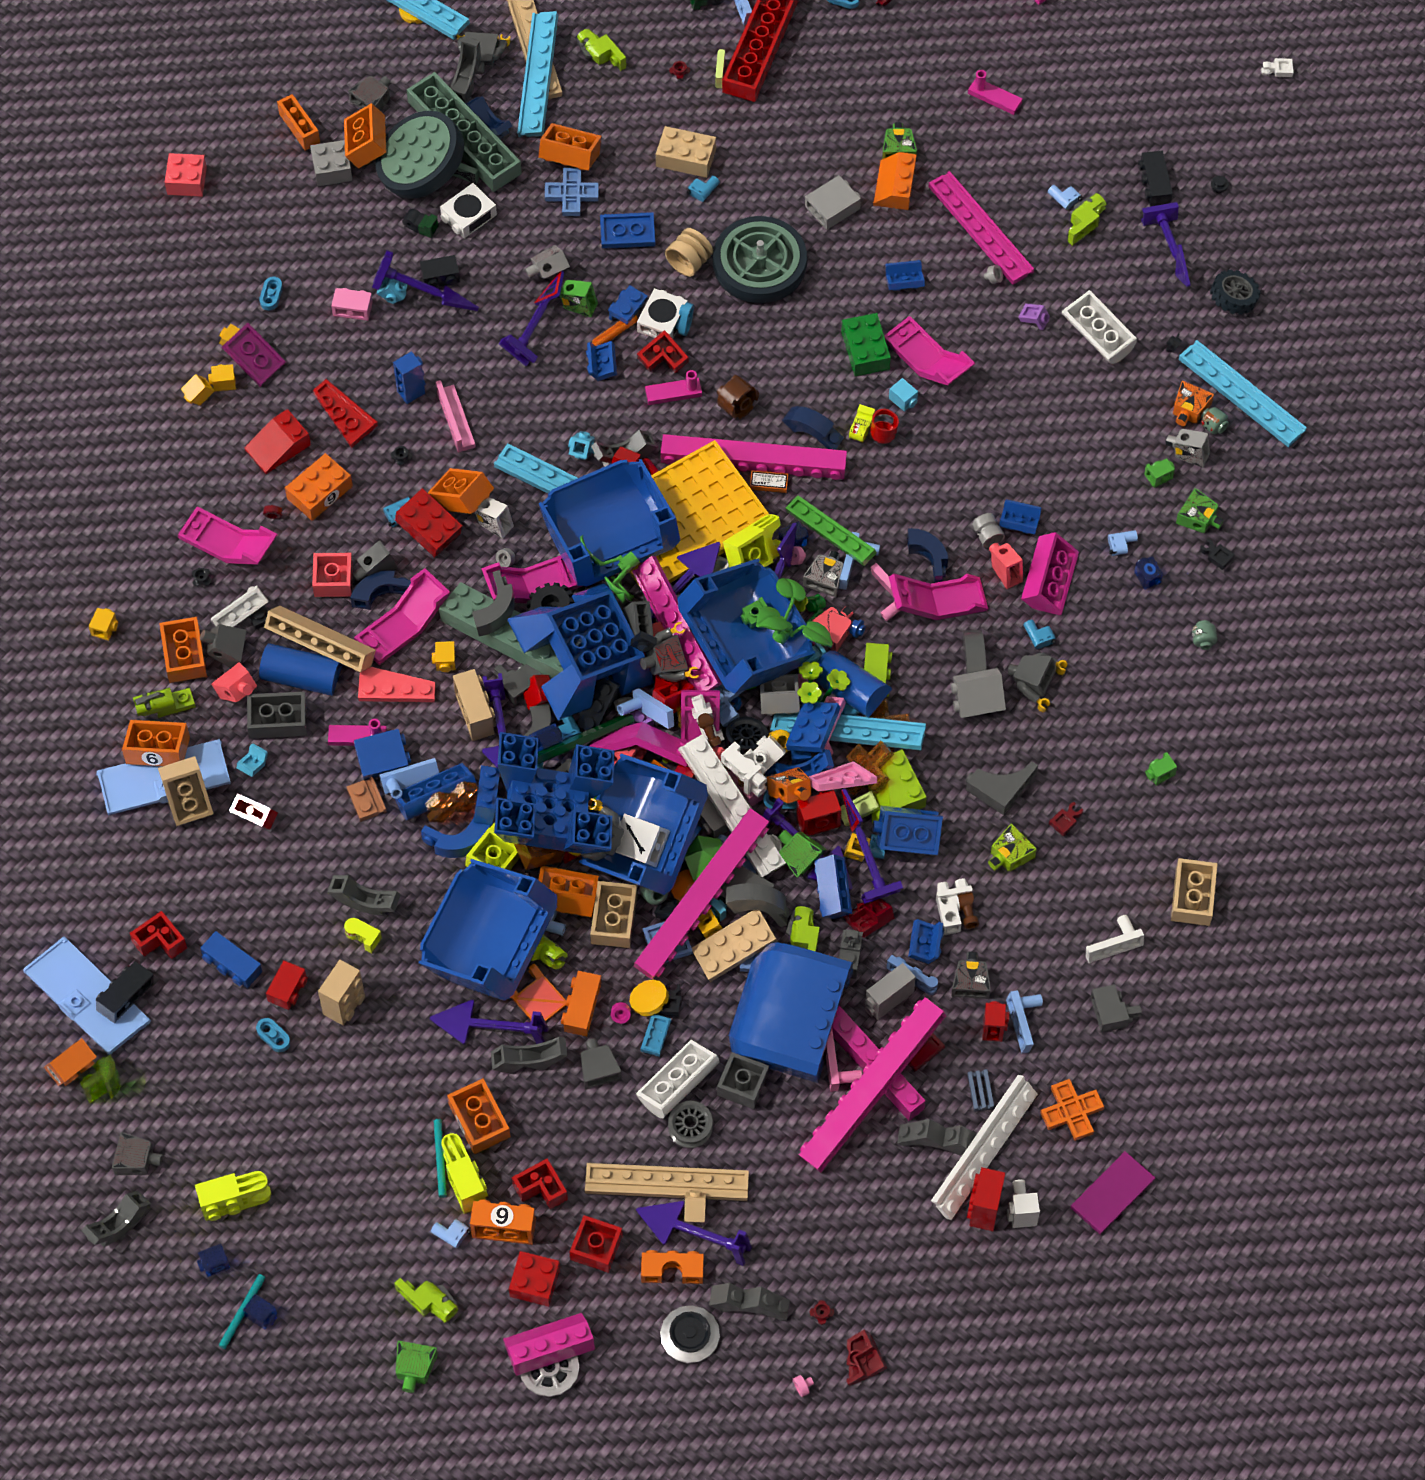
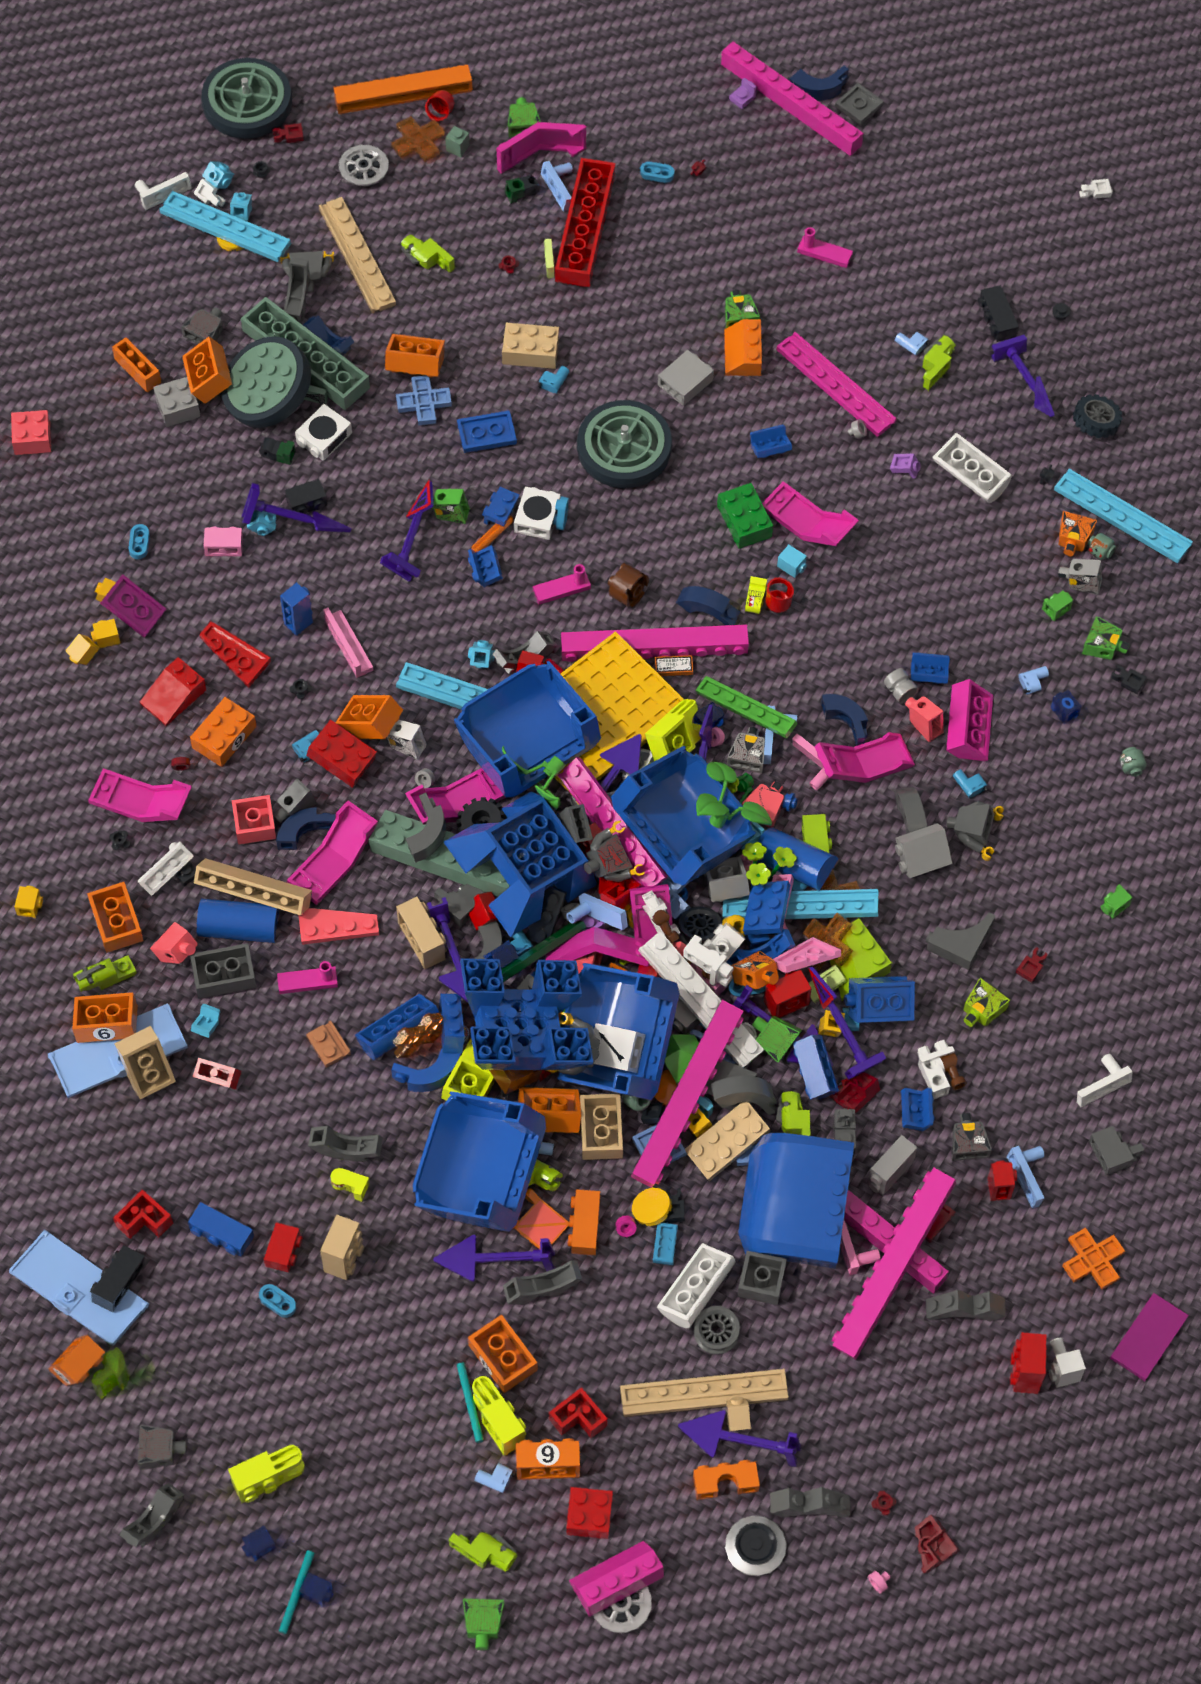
camera: 10 degrees left, 0 degrees up
(225, 644) = (157, 905): dark grey torso -> none
(381, 753) = (336, 996): blue brick -> none
(404, 777) = (362, 1017): light blue piece -> none
(444, 656) = (381, 887): yellow brick -> none
(537, 74) = (368, 286): medium azure plate -> none
(552, 258) = (414, 474): light grey torso -> none
(596, 1243) = (645, 1467): red brick -> none
(598, 1065) = (613, 1283): dark grey torso -> none
(643, 642) = (585, 846): black plate -> none
(661, 349) = (546, 546): red brick -> none
(689, 252) = (553, 445): tan wheel -> none
(747, 616) = (682, 805): bright green brick -> none
(925, 983) = (924, 1151): medium blue plate -> none
(977, 1074) = (993, 1236): sand blue tile -> none
(984, 1146) = (1014, 1310): white plate -> none
(1194, 892) = (1172, 1021): tan brick -> none

